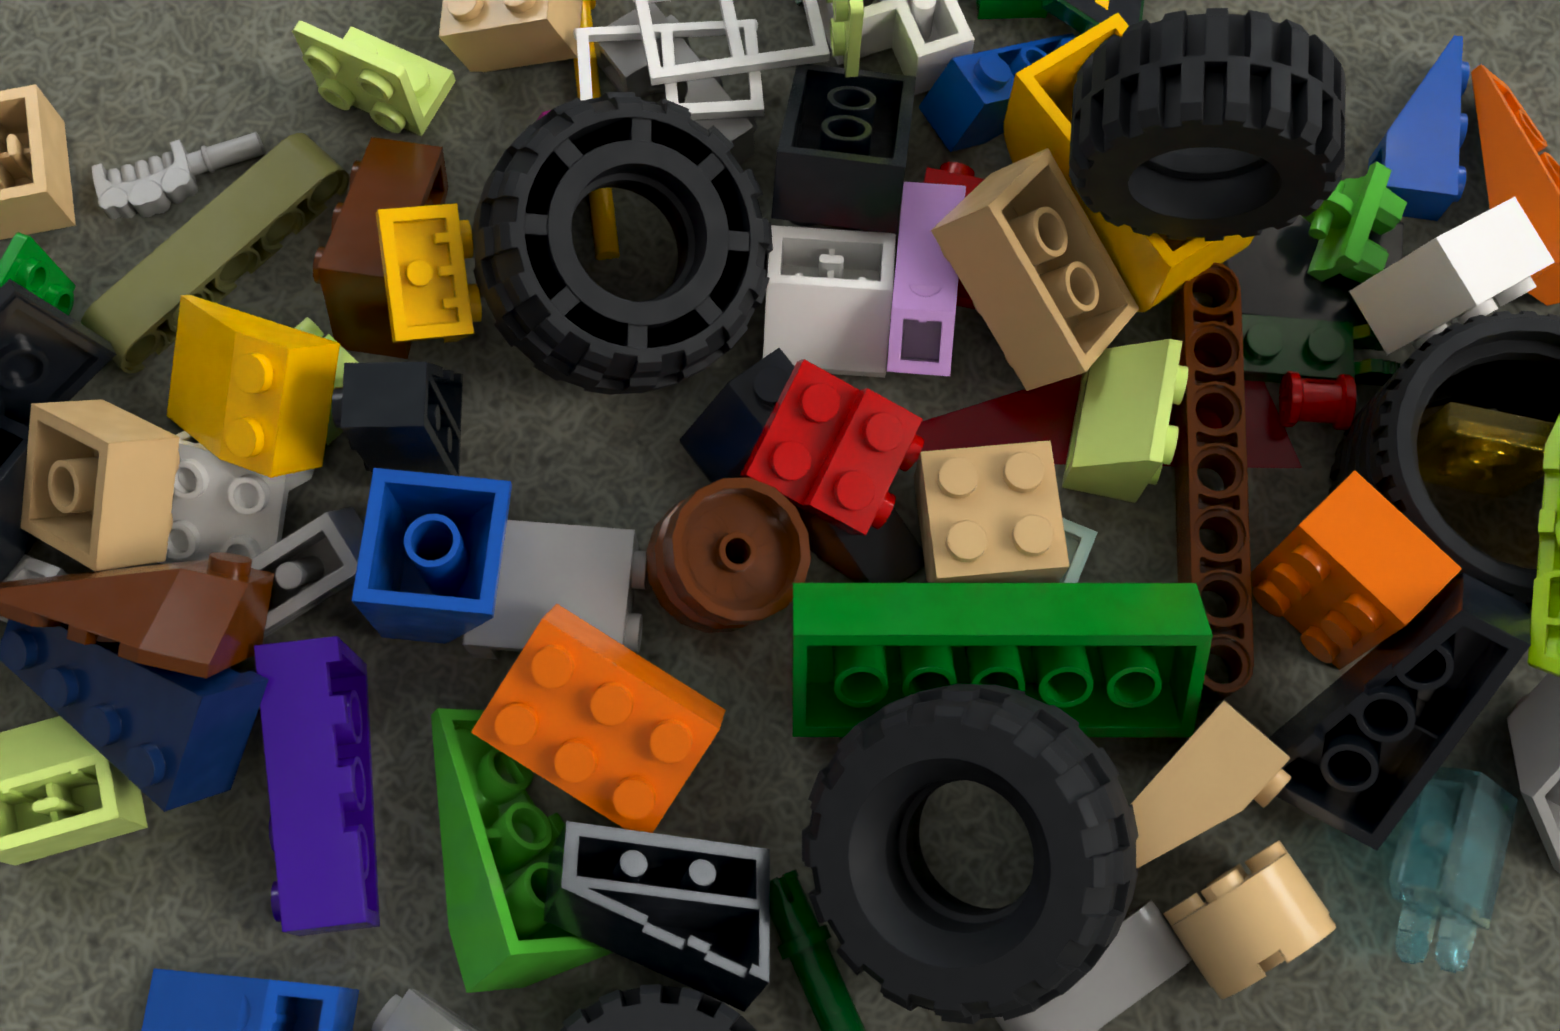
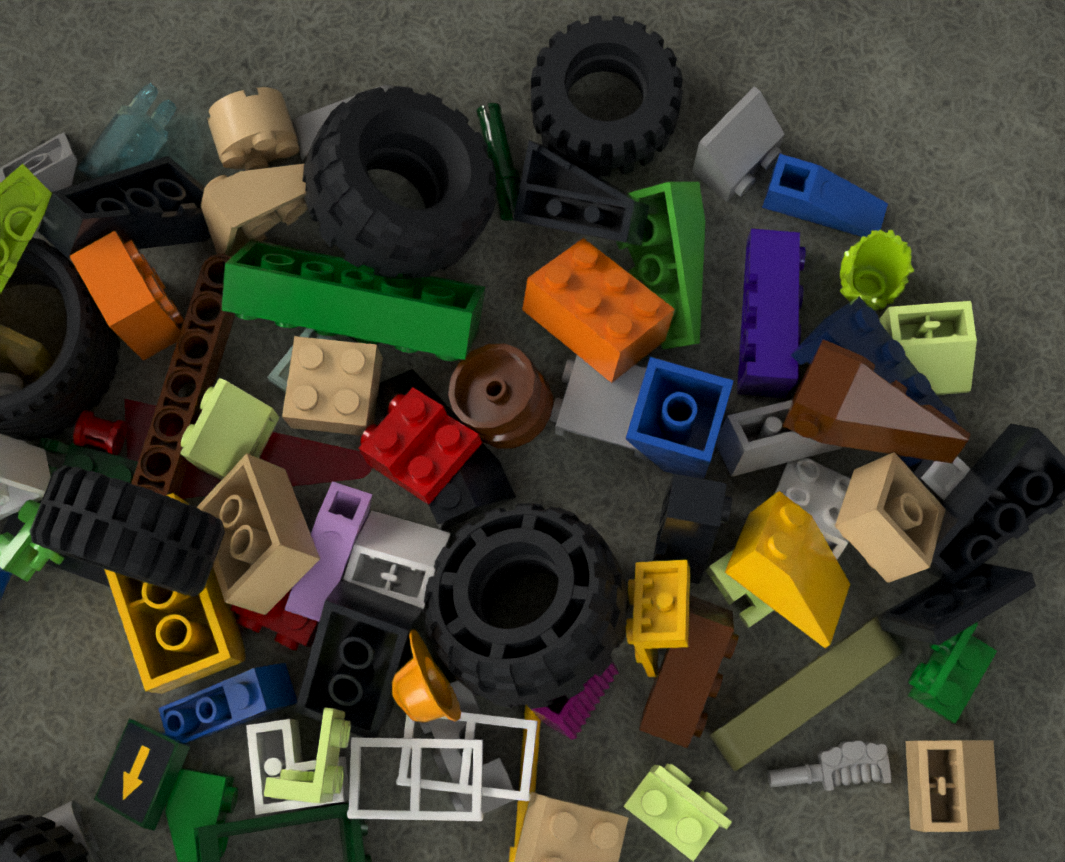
camera: 165 degrees left, 5 degrees up
(124, 909) = (881, 259): none -> lime hair
(743, 109) = (423, 688): none -> light orange piece

